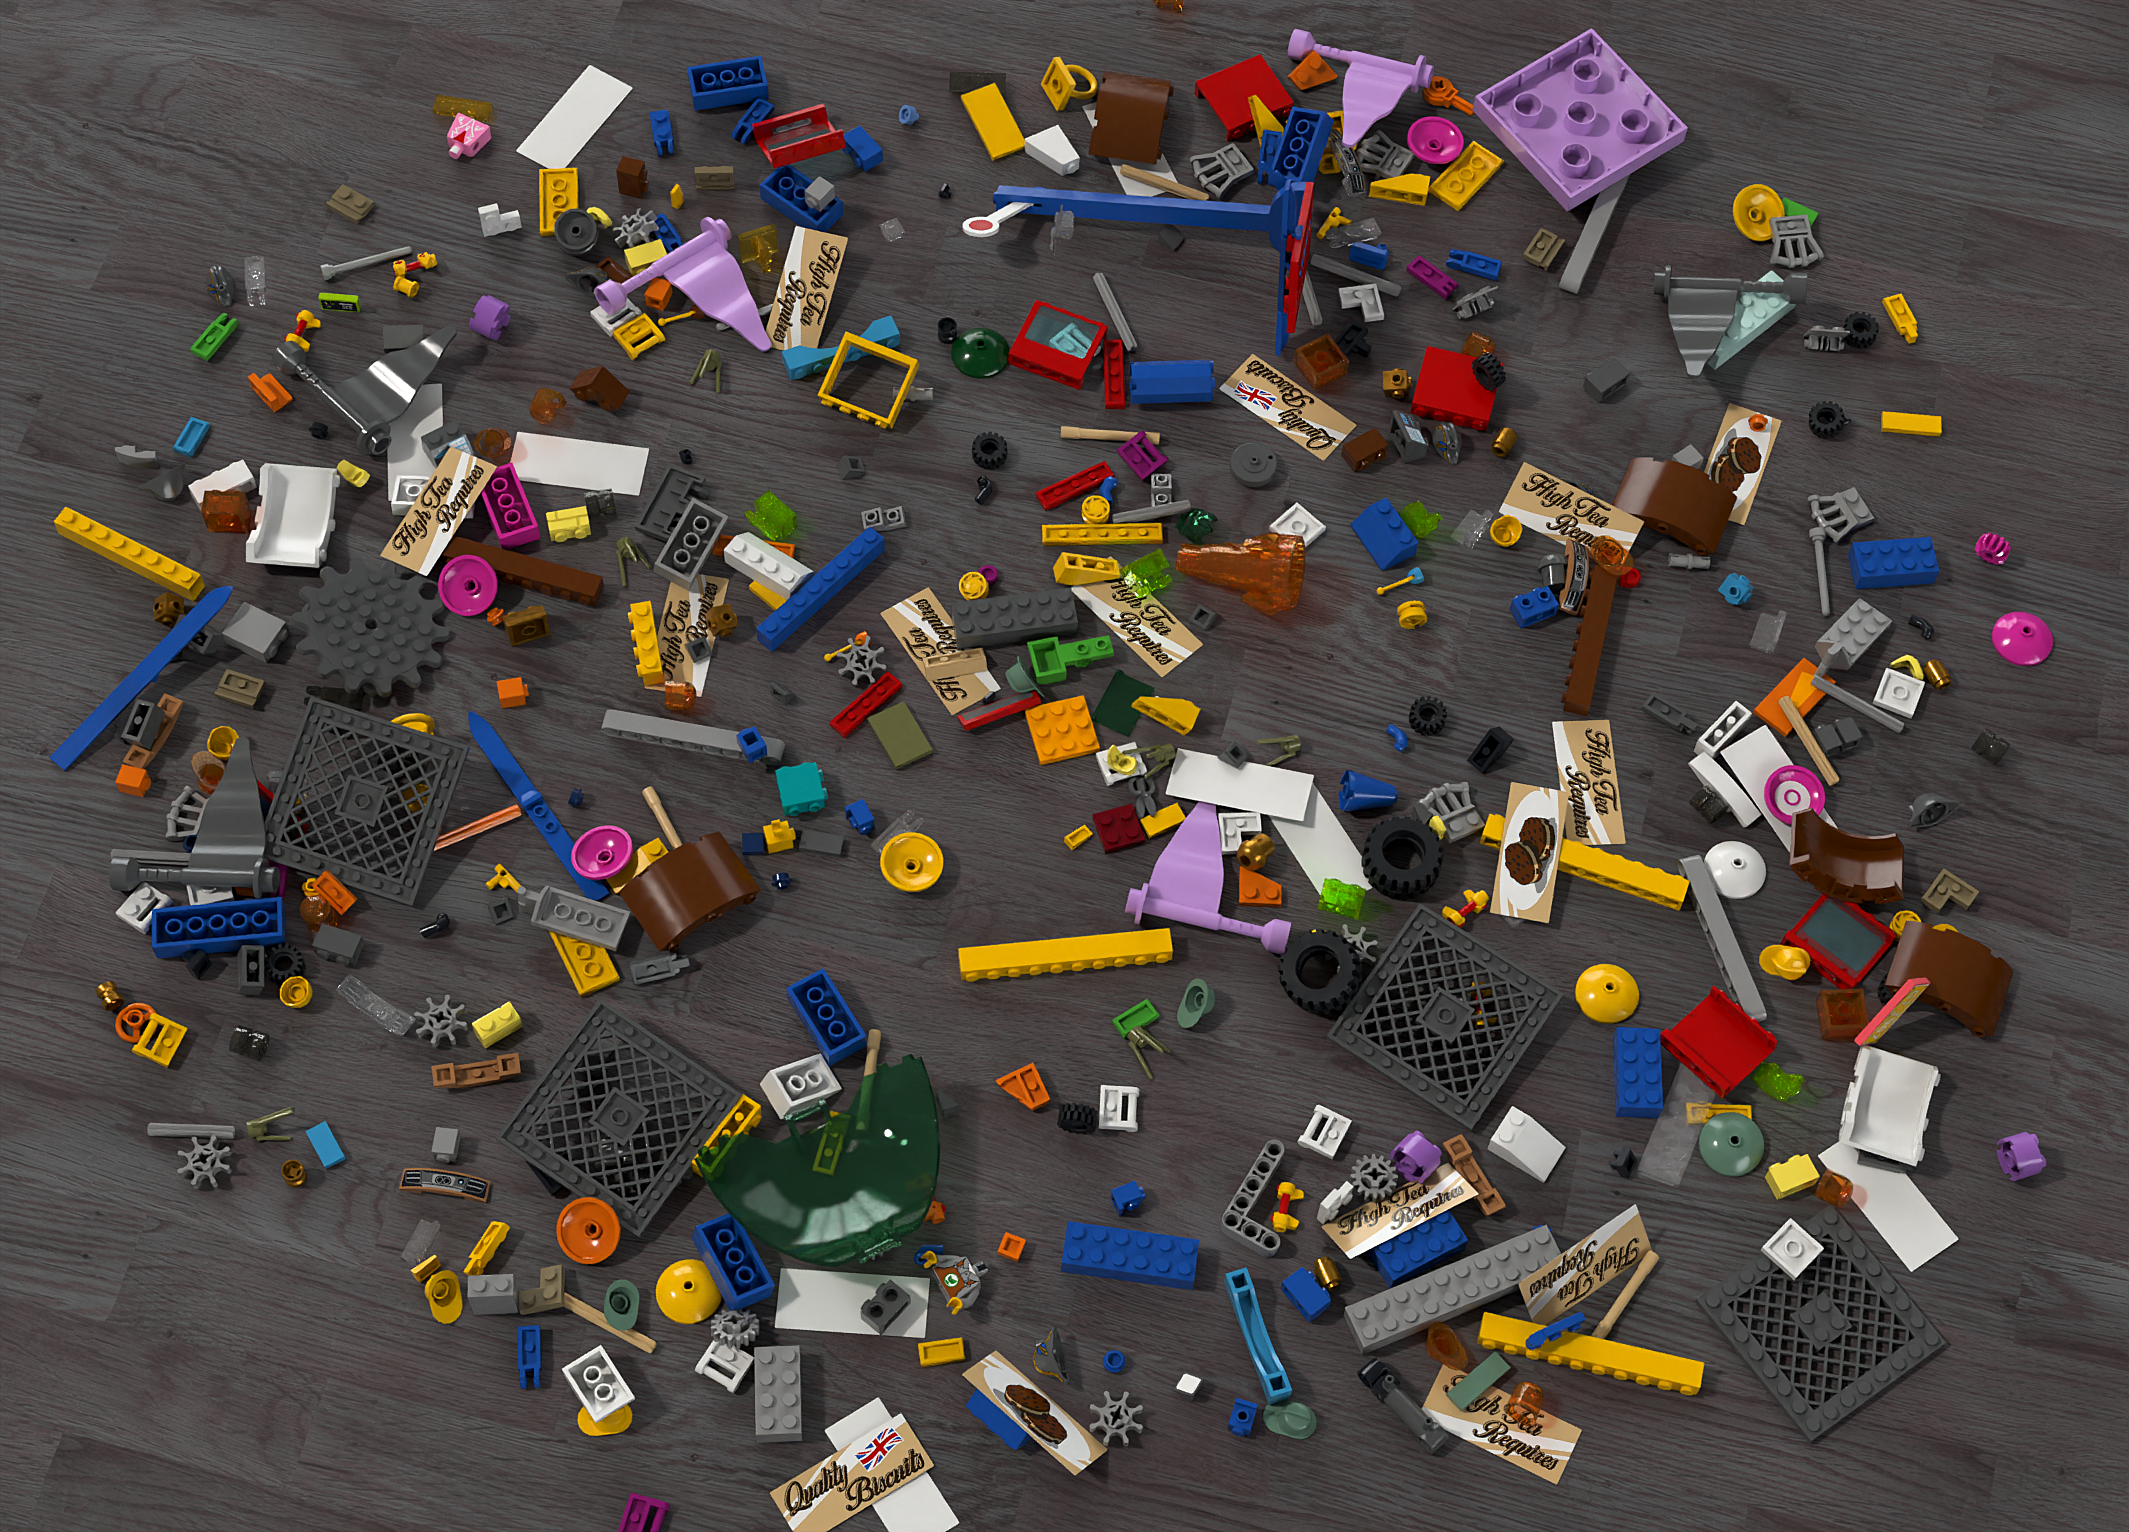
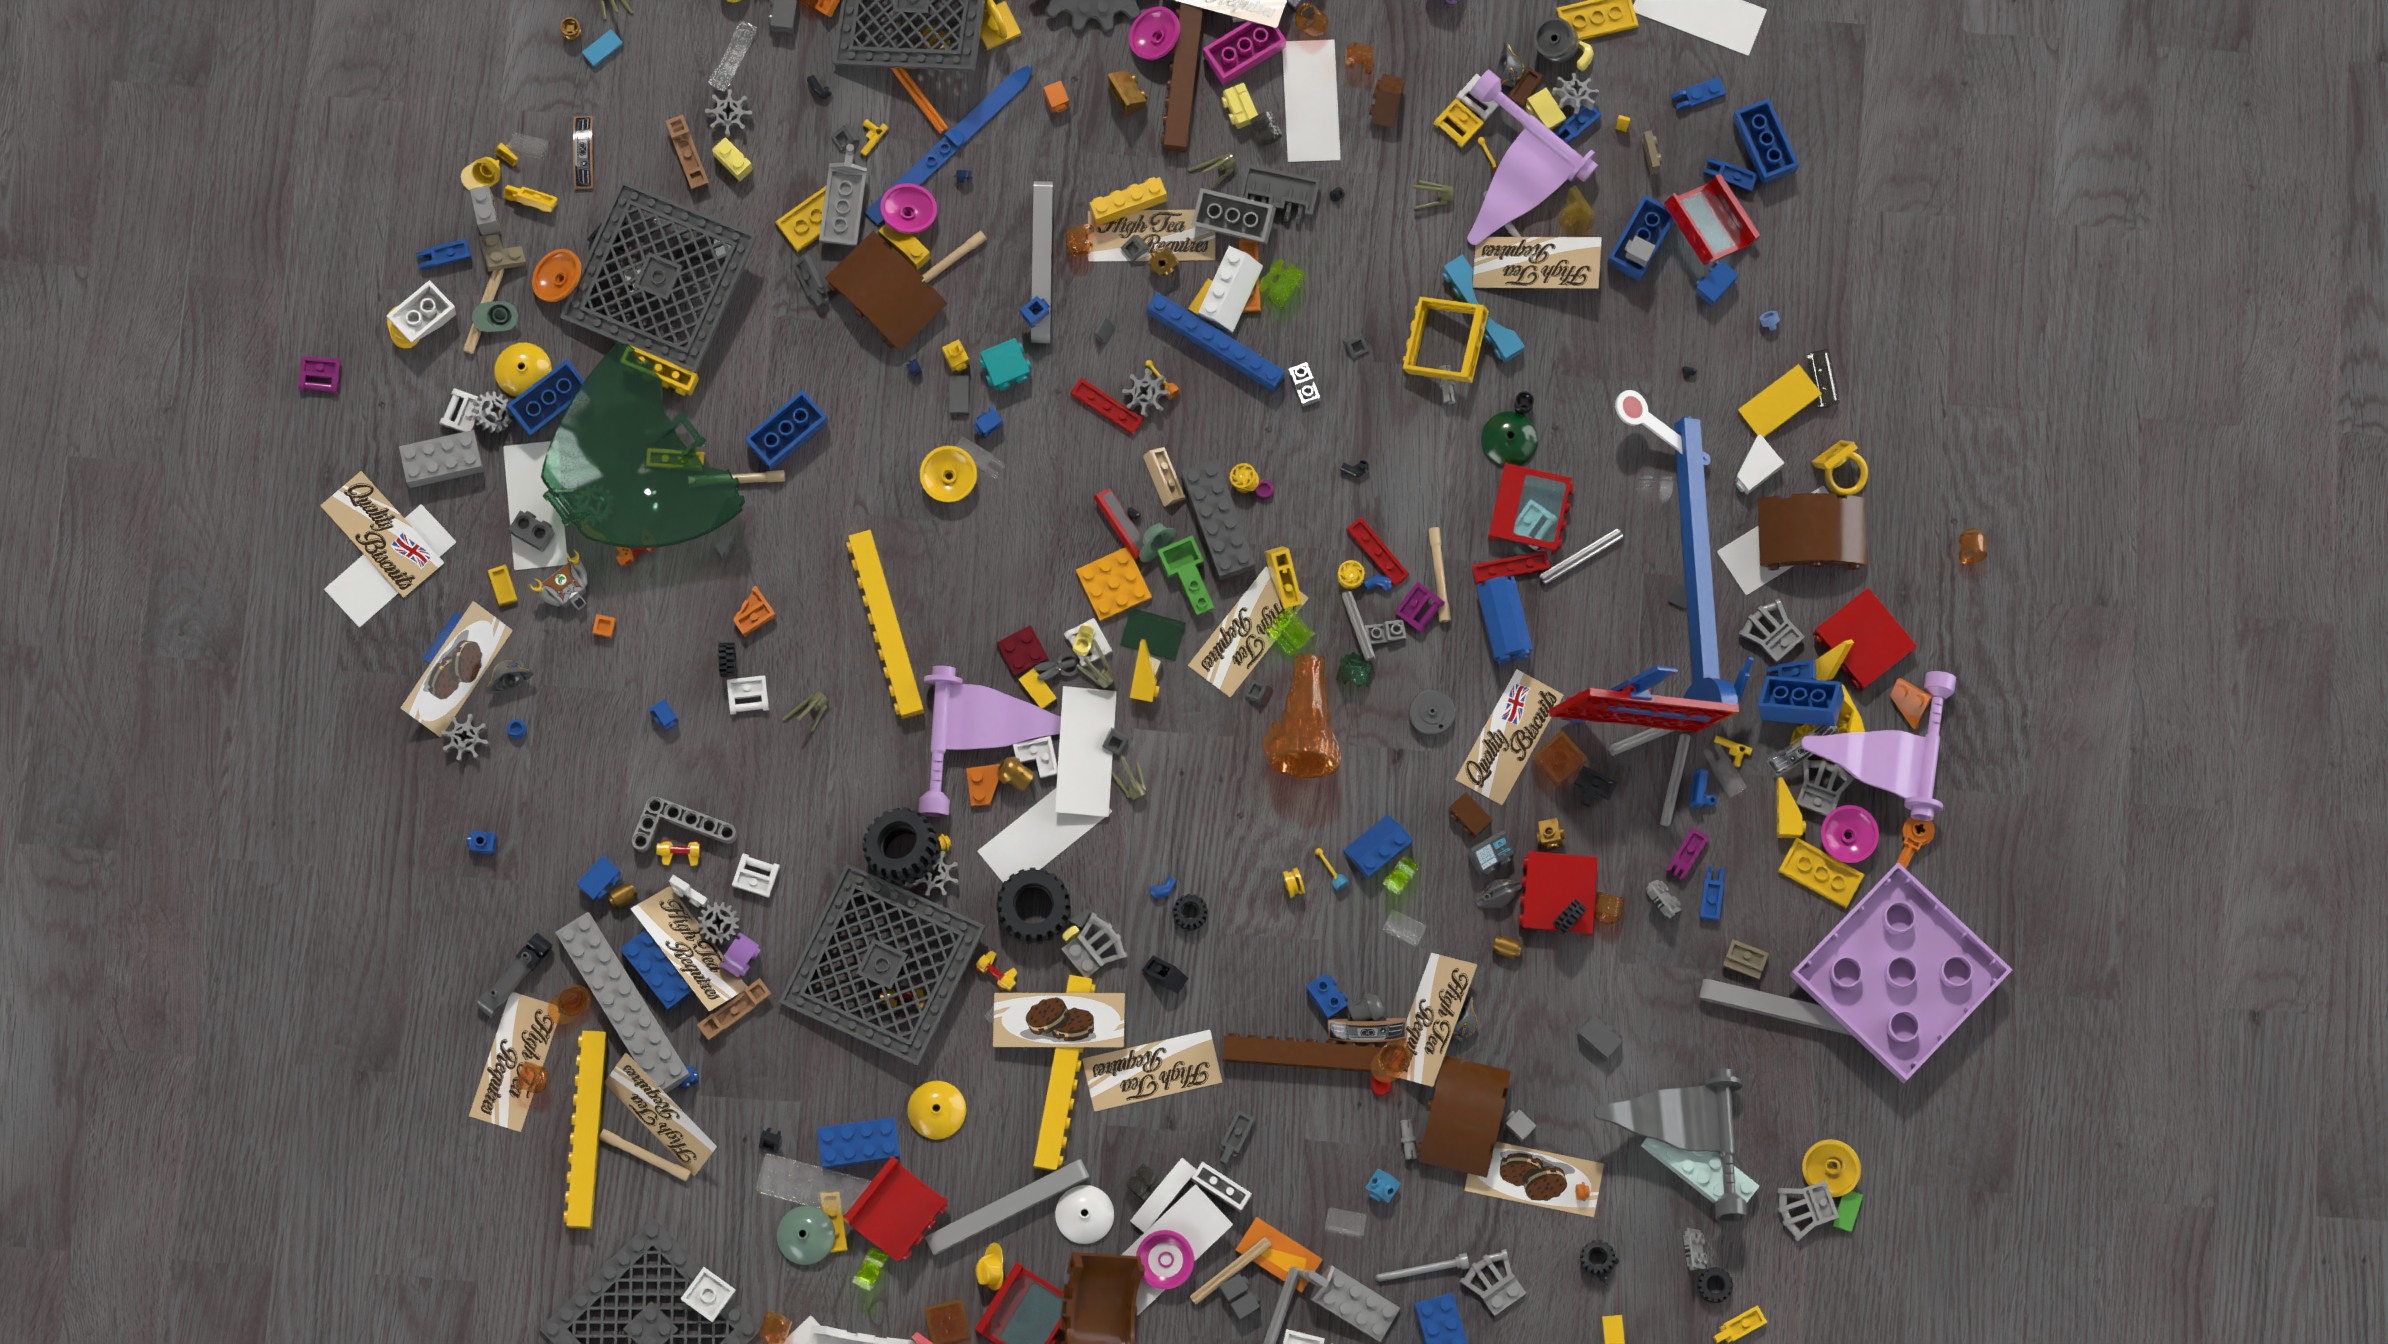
camera: 80 degrees right, 15 degrees up
(445, 1145) = (616, 144): light grey brick -> none
(495, 616) = (1132, 65): orange plate -> none
(632, 177) = (1631, 76): reddish brown brick -> none
(658, 293) = (1508, 130): orange brick -> none
(753, 843) = (947, 335): dark blue tile -> none
(799, 1085) = (721, 422): white slope -> none
(892, 230) = (1632, 330): clear tile -> none
(900, 735) = (1080, 441): olive tile -> none
(927, 632) = (1192, 443): sticker -> none
(936, 1249) = (588, 556): blue arm -> none
(989, 440) = (1389, 474): black tyre -> none
(1077, 837) = (1007, 617): yellow piece -> none
(1102, 534) = (1329, 585): yellow tile -> none
(1130, 1255) = (610, 725): blue brick -> none
(1140, 1015) = (837, 696): bright green tile -> none
(1162, 183) = (1743, 579): tan axle -> none
(1188, 1385) = (505, 794): slope -> none
(1195, 1003) = (857, 745): sand green piece -> none
(1267, 1365) = (547, 848): dark azure arch -> none
(1290, 1419) = (490, 883): sand green piece -> none
(1298, 522) = (1372, 765): white tile -> none
(1341, 898) = (984, 858): clear neon green brick -> none
(1364, 296) = (1649, 792): white plate -> none
(1364, 792) = (1095, 865): blue cone -> none
(1478, 1381) = (547, 1037): sand green tile -> none
(1506, 530) = (1404, 959): yellow hair -> none
(1526, 1144) = (772, 1053): white slope -> none
(1554, 1331) = (593, 1091): blue hinge -> none
(1791, 1176) = (782, 1291): light yellow brick -> none

